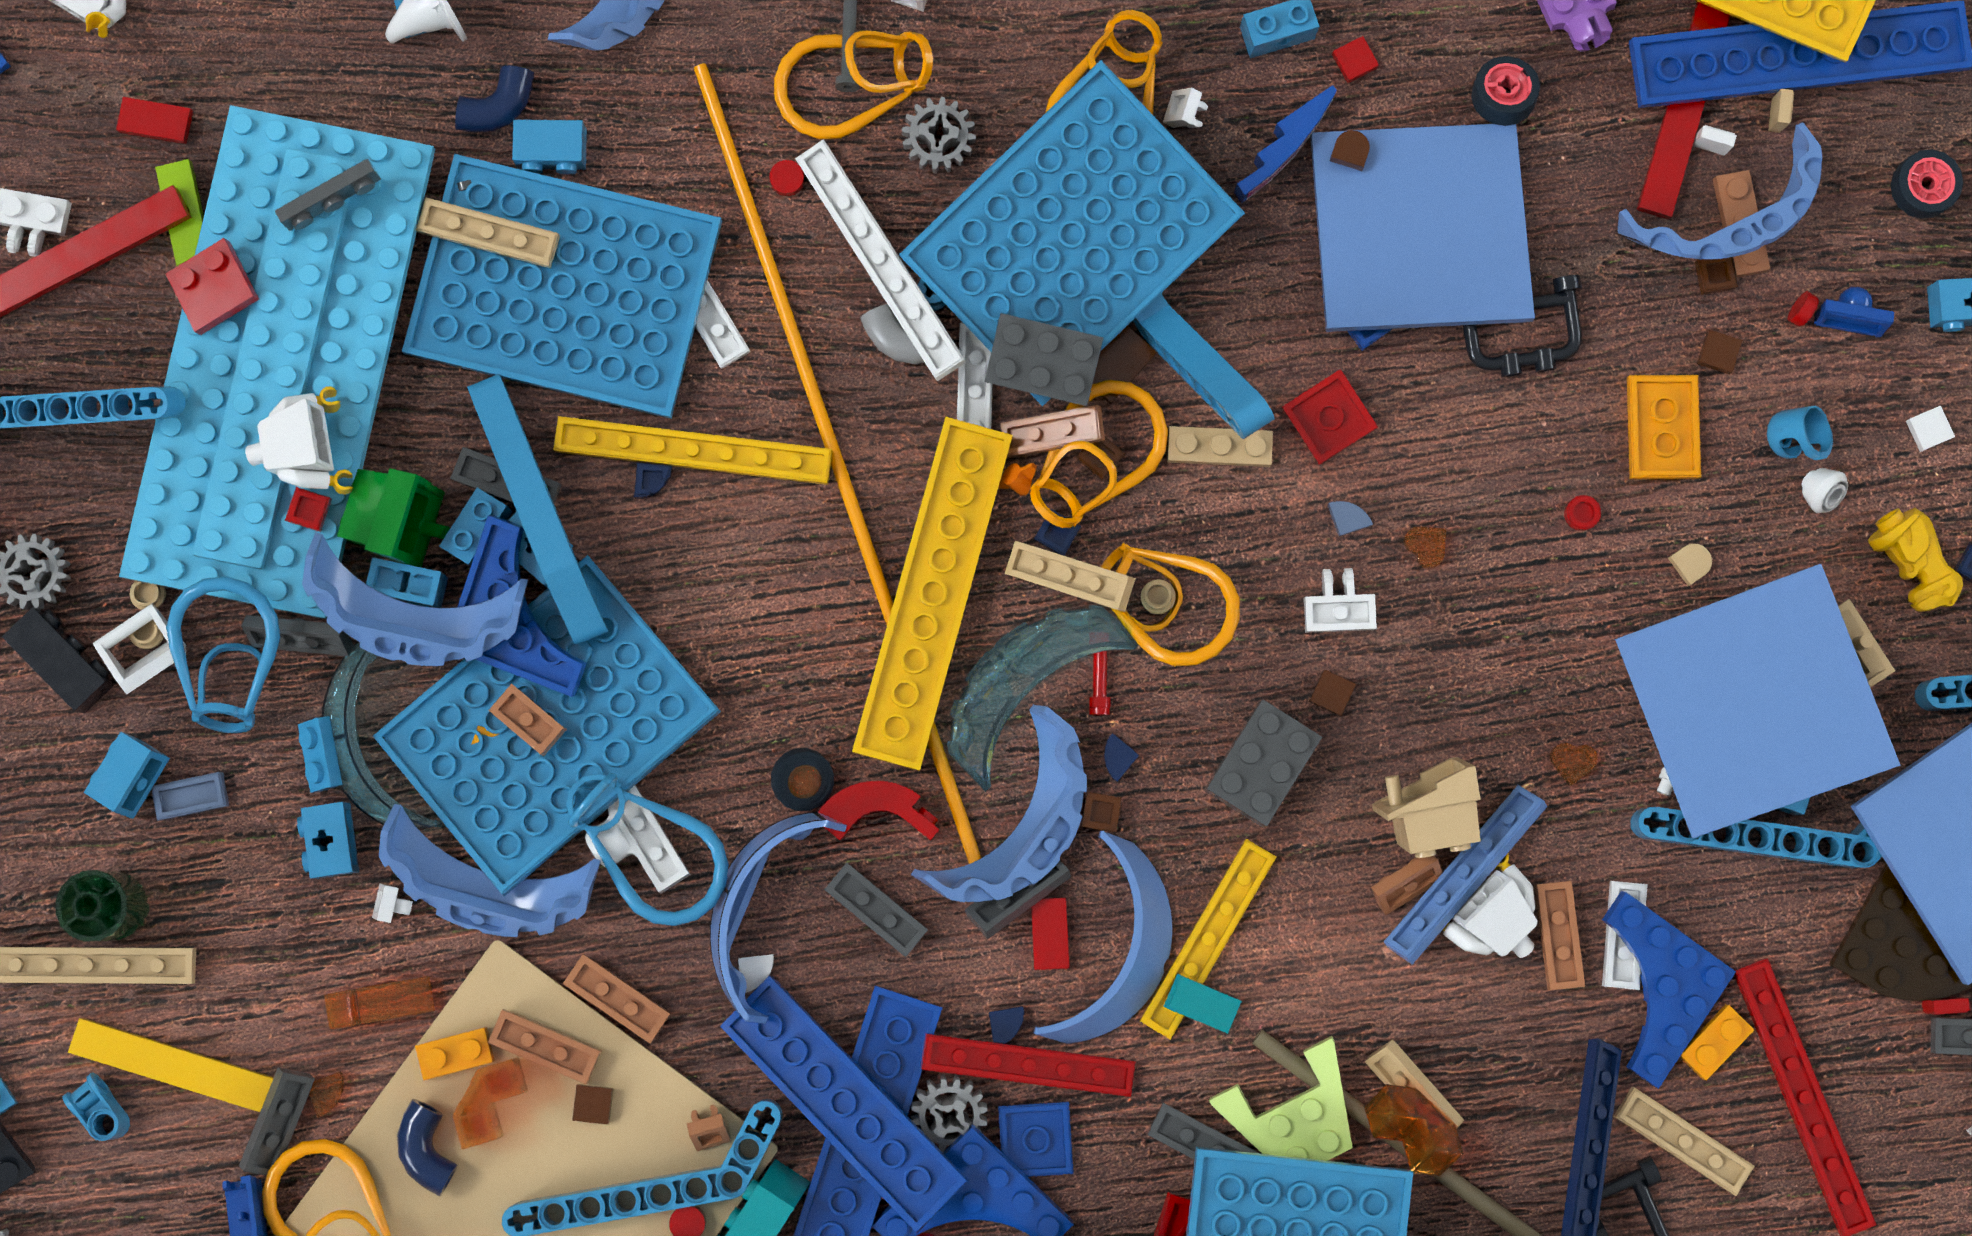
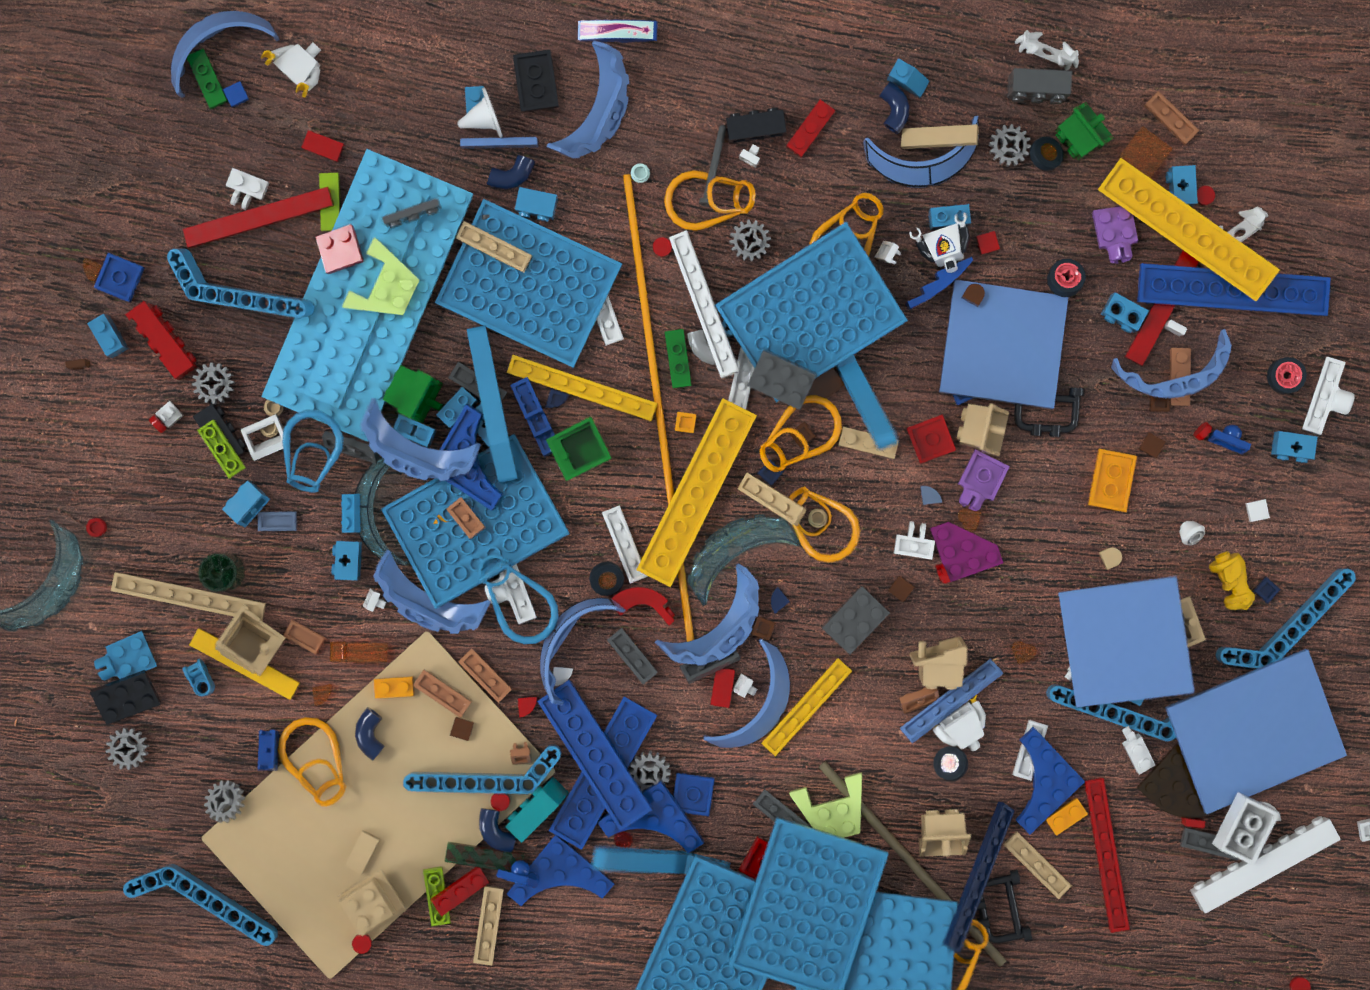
camera: 15 degrees right, 5 degrees up
(77, 698) = (214, 439): none -> lime tile
(172, 1022) = (249, 642): none -> tan piece
(276, 995) = (304, 637): none -> nougat tile
(276, 1120) = (293, 703): dark grey plate -> none
(297, 442) = (370, 346): white torso -> none
(308, 509) = (369, 381): red tile -> none
(317, 337) = (392, 288): none -> yellowish green wing
(464, 52) = (509, 142): none -> medium blue tile
(476, 1113) = (400, 724): clear orange brick -> none
(620, 517) = (533, 413): none -> blue slope
(702, 1038) = (526, 705): none -> red tile
(706, 554) = (578, 449): none -> green piece
(722, 58) = (640, 173): none -> light aqua plate
(821, 710) = (624, 543): none -> white tile
(853, 366) = (677, 358): none -> green plate
(888, 474) = (685, 422): none -> light orange plate
(1006, 1023) = (689, 730): dark blue tile -> none
(1018, 478) = (755, 438): orange piece -> none
(1028, 1065) = (696, 754): red tile -> none
(1054, 430) = (780, 417): nougat tile -> none
(1087, 923) = (744, 686): none -> white tile
(1099, 704) = (774, 569): red bar -> none
(1202, 1003) = (796, 741): teal tile -> none
(1281, 74) = (945, 245): none -> torso
(1396, 1068) = (899, 809): tan plate -> none
(1400, 650) = (942, 573): none -> red tile
(1417, 378) = (983, 428): none -> tan piece
(1423, 1128) = (899, 830): clear orange brick -> none
(1429, 604) = (963, 551): none -> magenta plate
(1433, 471) = (981, 480): none -> medium lavender plate
(1488, 987) = (950, 763): none -> black wheel
(1504, 1118) = (943, 834): none -> tan piece
(1559, 935) = (994, 743): nougat plate -> none
(1582, 513) = (1057, 518): red tile -> none
(1620, 121) = (1125, 308): none -> dark azure brick
(1781, 110) = (1215, 318): tan tile -> none
(1804, 424) = (1187, 497): dark azure helmet -> none
(1817, 897) = (1137, 751): none -> white plate

